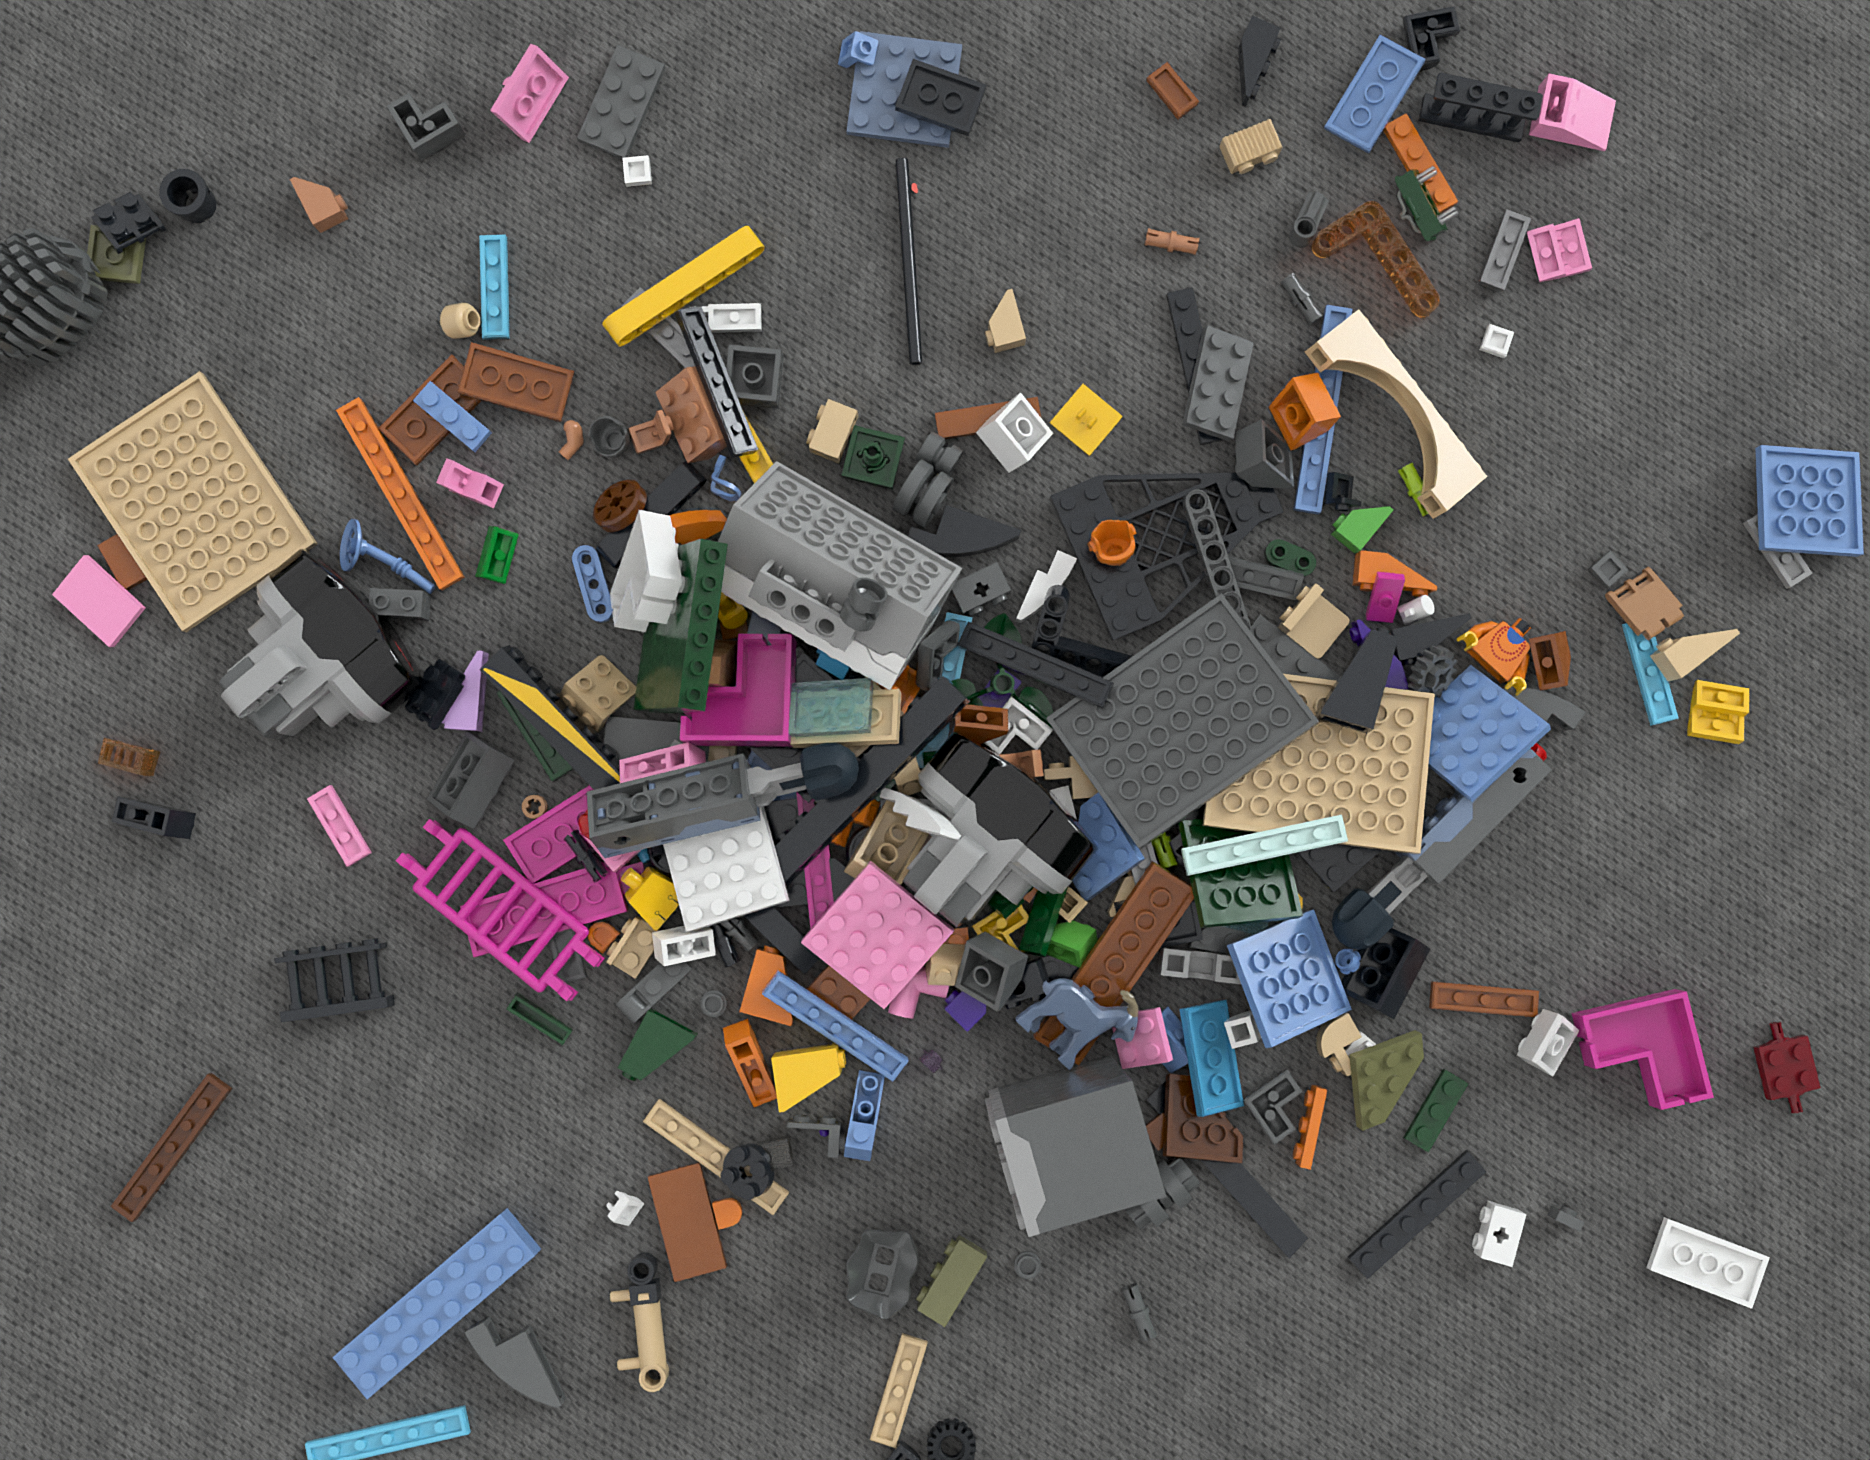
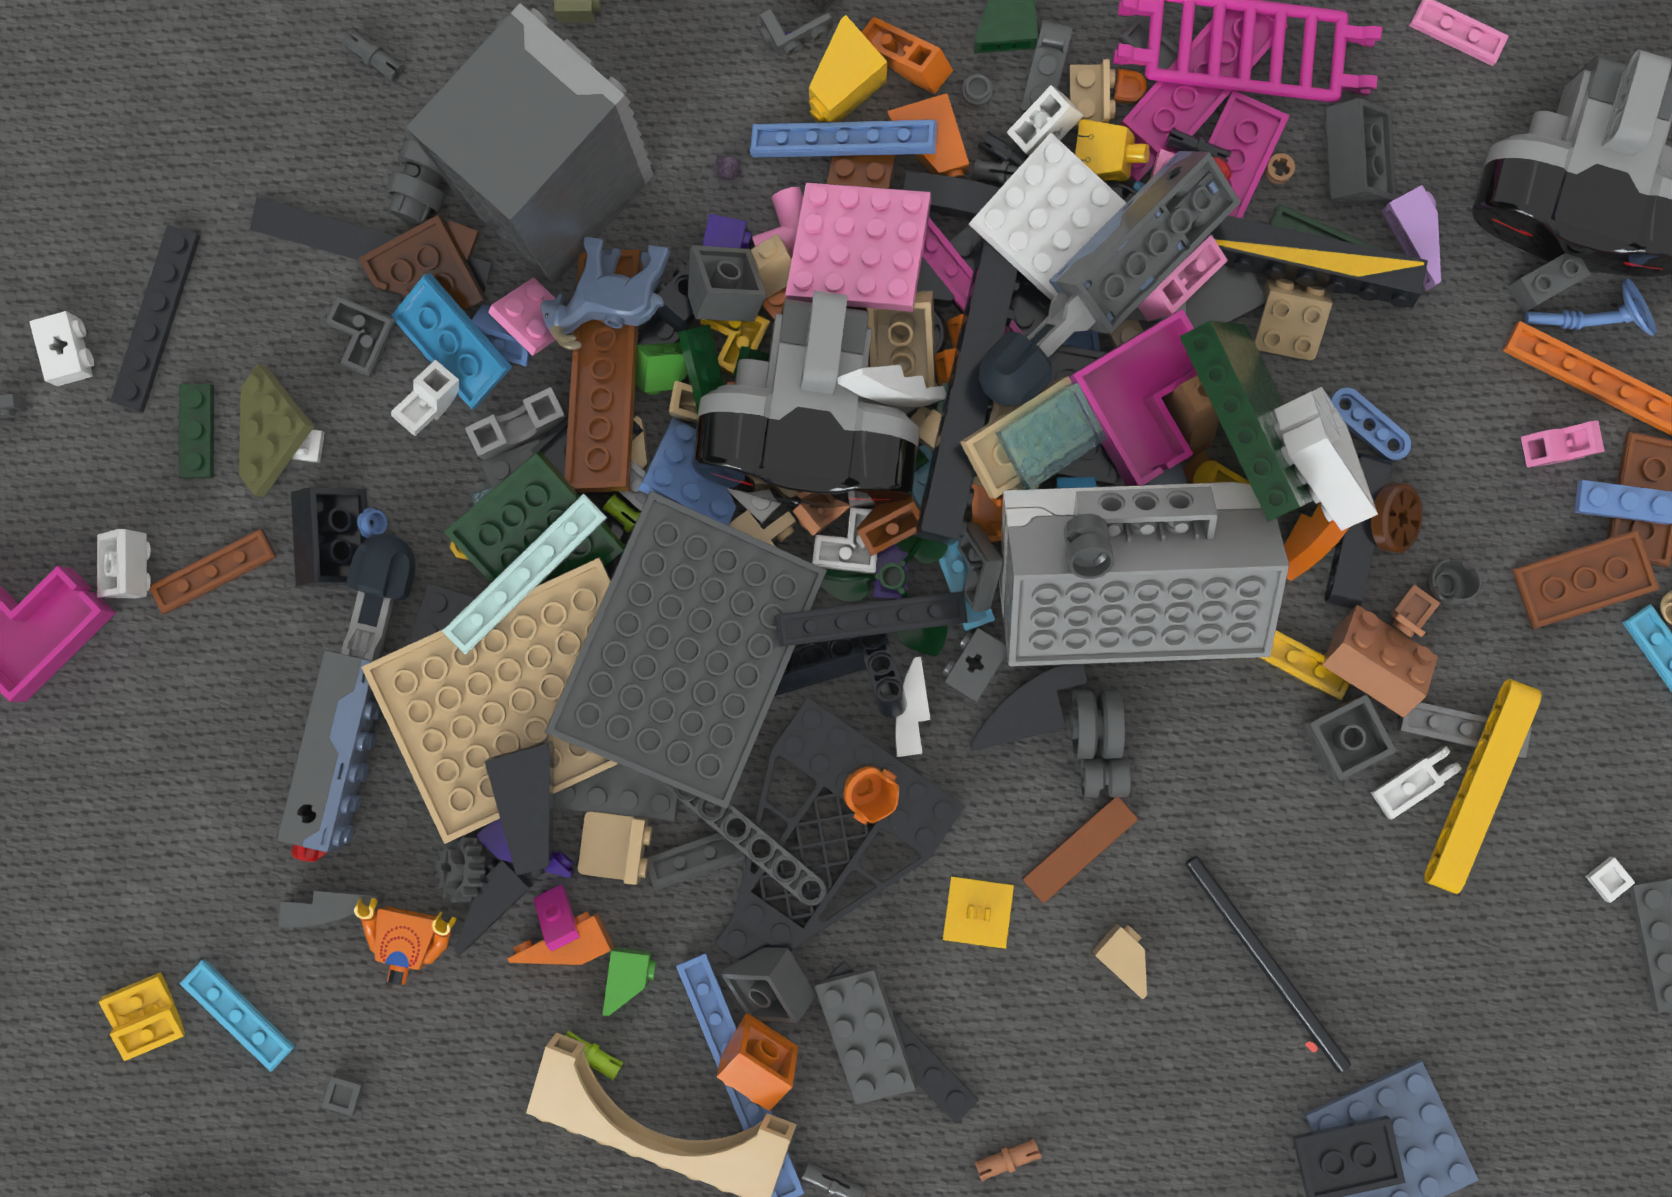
camera: 155 degrees right, 0 degrees up
(437, 695) = (1452, 214): black plate -> none
(497, 554) = (1484, 393): green slope -> none
(574, 439) = (1486, 559): nougat arm -> none
(716, 381) = (1385, 703): tile -> none
(718, 468) = (1322, 624): medium blue piece -> none
(832, 431) = (1231, 733): tan brick -> none
(857, 48) = (1467, 1158): medium blue bracket -> none
(864, 1115) = (760, 73): medium blue slope -> none
(866, 442) = (1191, 740): dark green plate -> none
(1014, 433) = (1043, 848): white slope -> none
(1289, 978) = (420, 464): medium blue plate -> none
(1290, 557) = (679, 899): dark green plate -> none
(1309, 1126) = (312, 336): orange plate -> none
(1333, 1037) = (340, 440): tan brick -> none
(1339, 492) = (669, 1000): black bracket -> none
(1416, 609) = (516, 926): white piece -> none
(1479, 732) = (375, 834): medium blue plate -> none
(1551, 660) = (345, 960): dark orange slope -> none
(1646, 606) = (280, 1081): medium nougat plate -> none
(1682, 655) = (211, 1052): tan slope -> none

